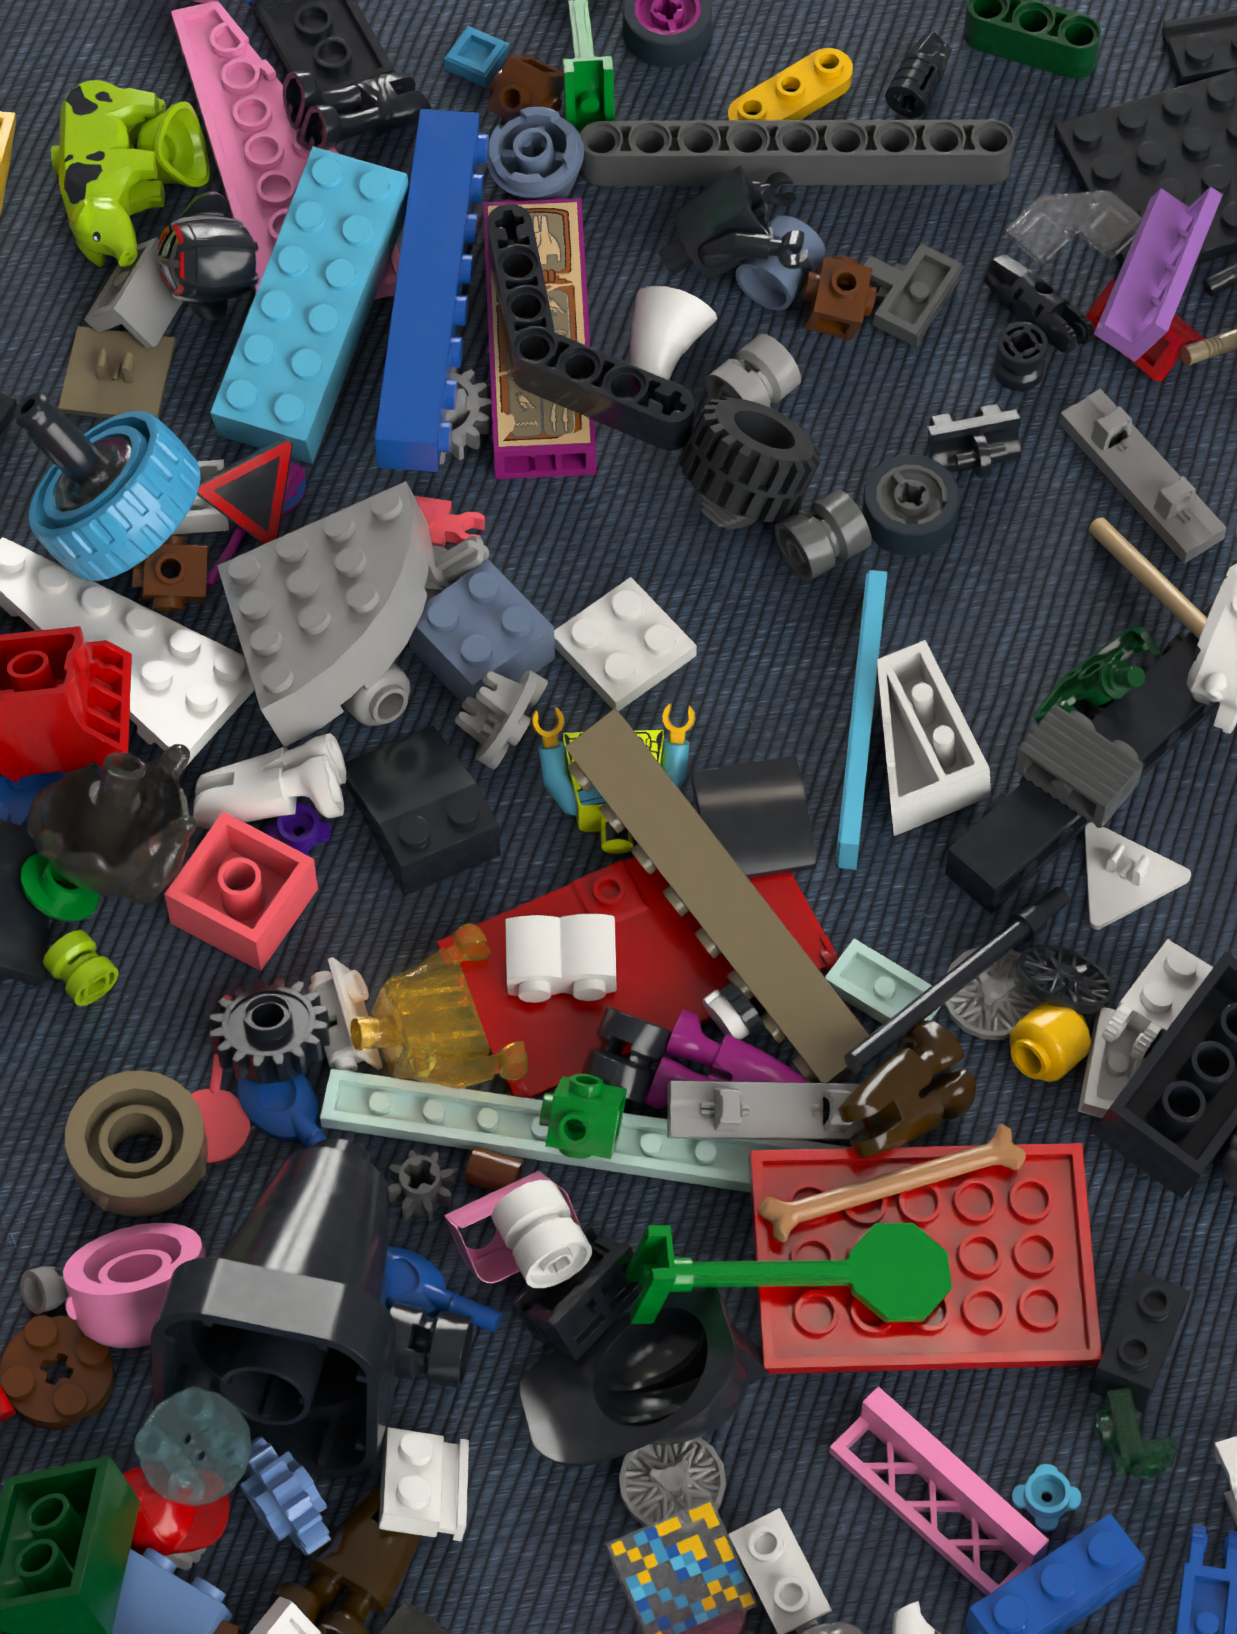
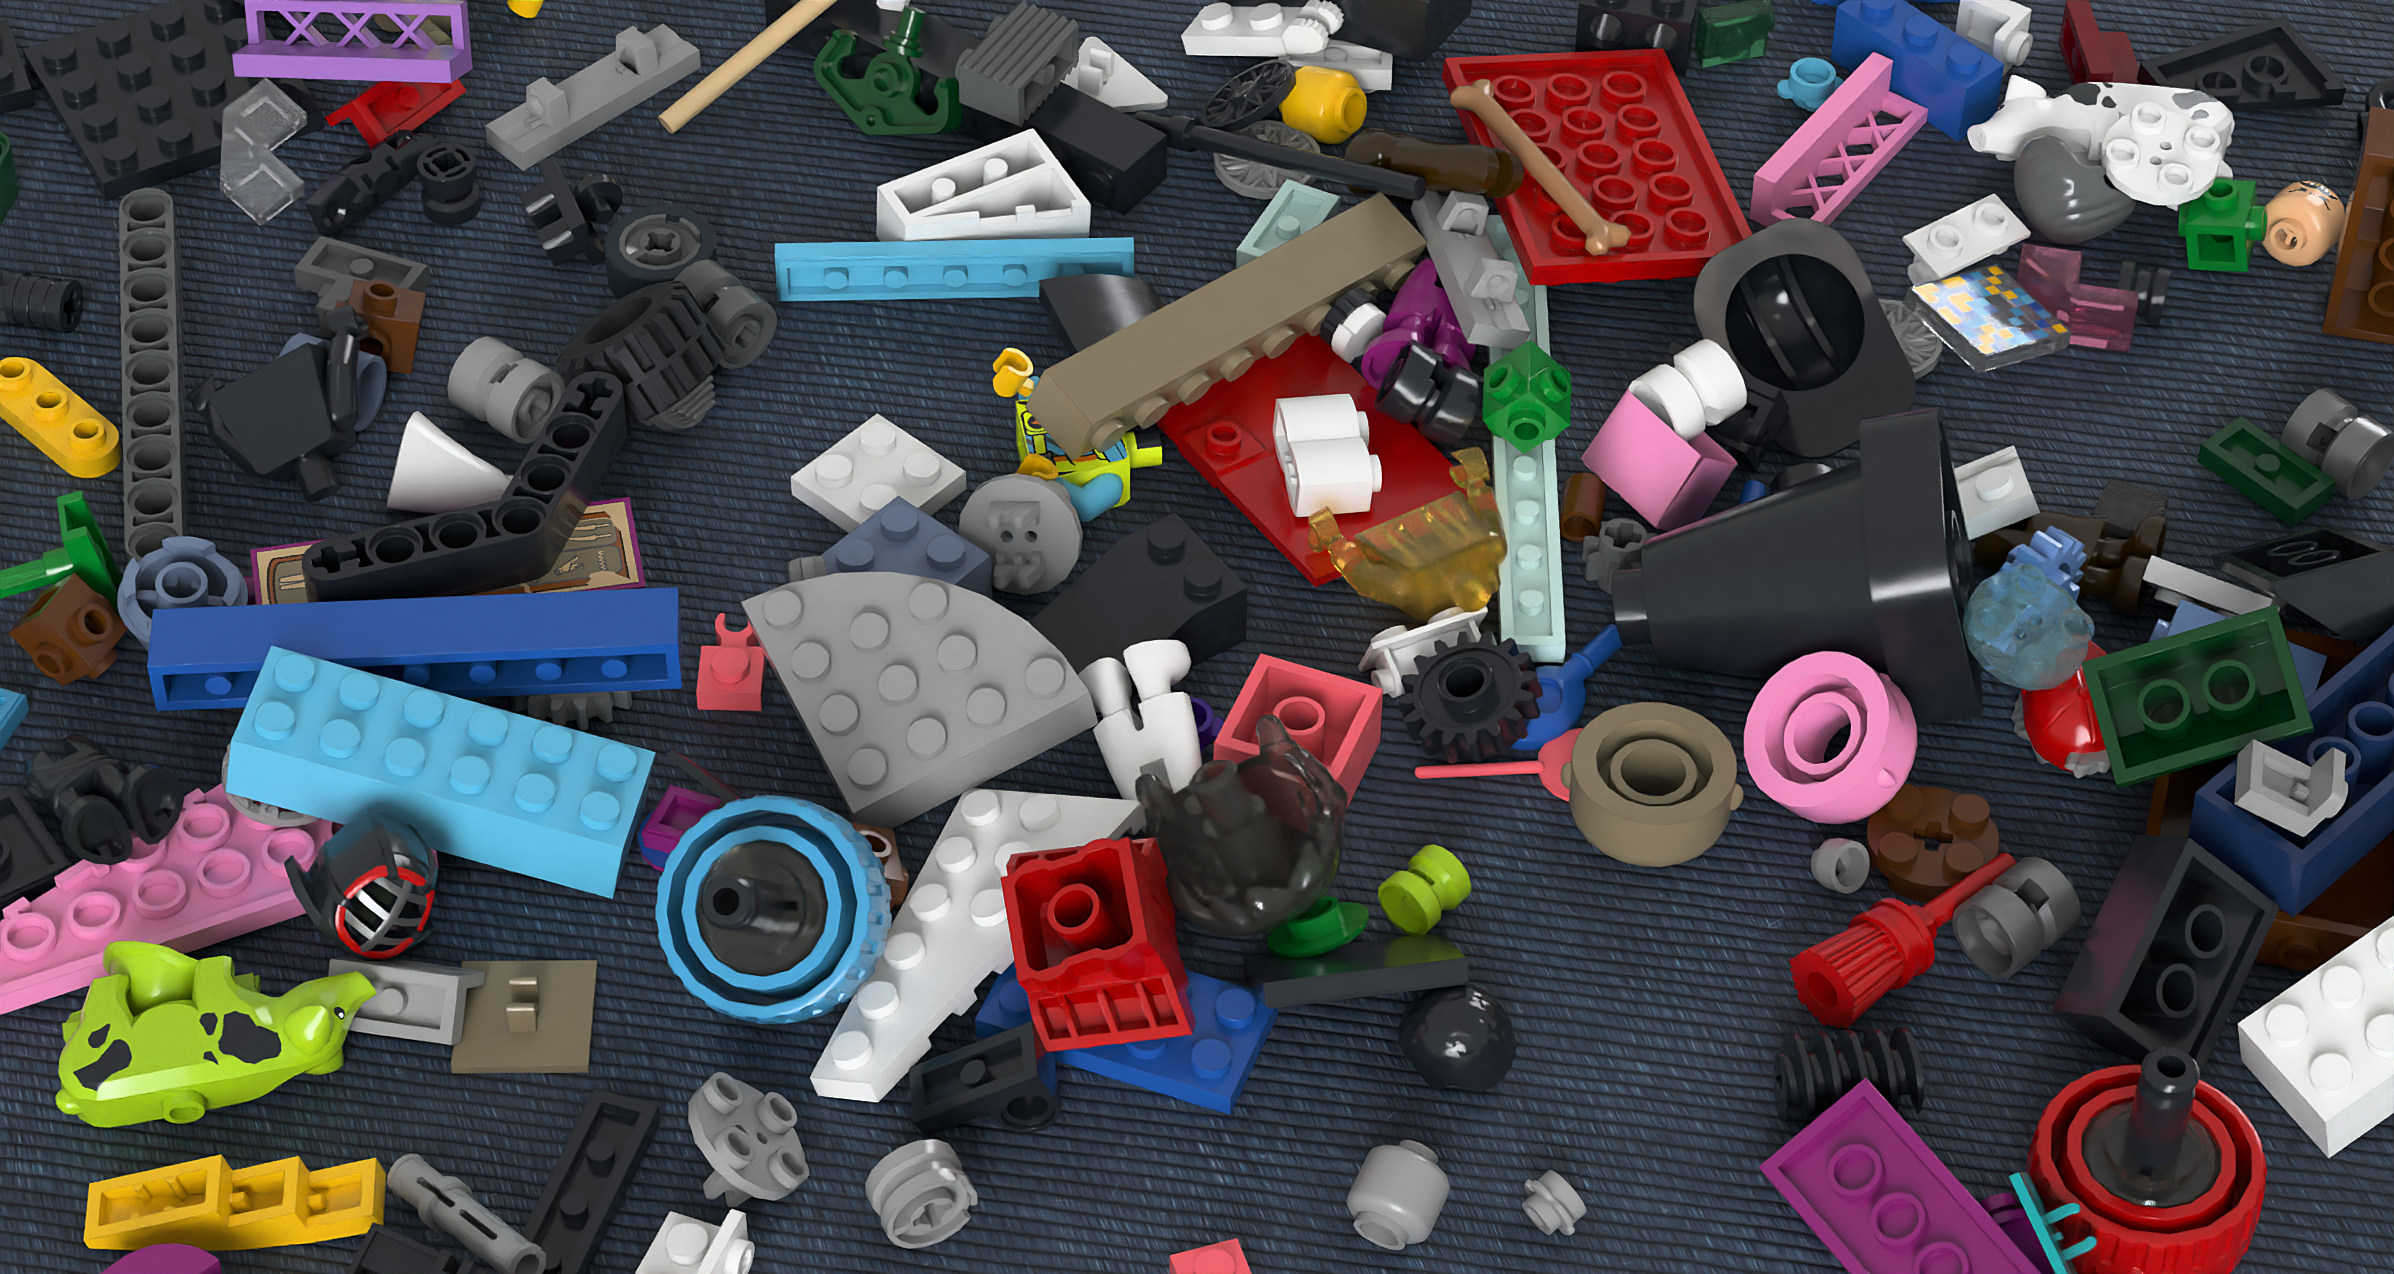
camera: 100 degrees left, 15 degrees down
(890, 1270) = (1717, 264): green piece -> none

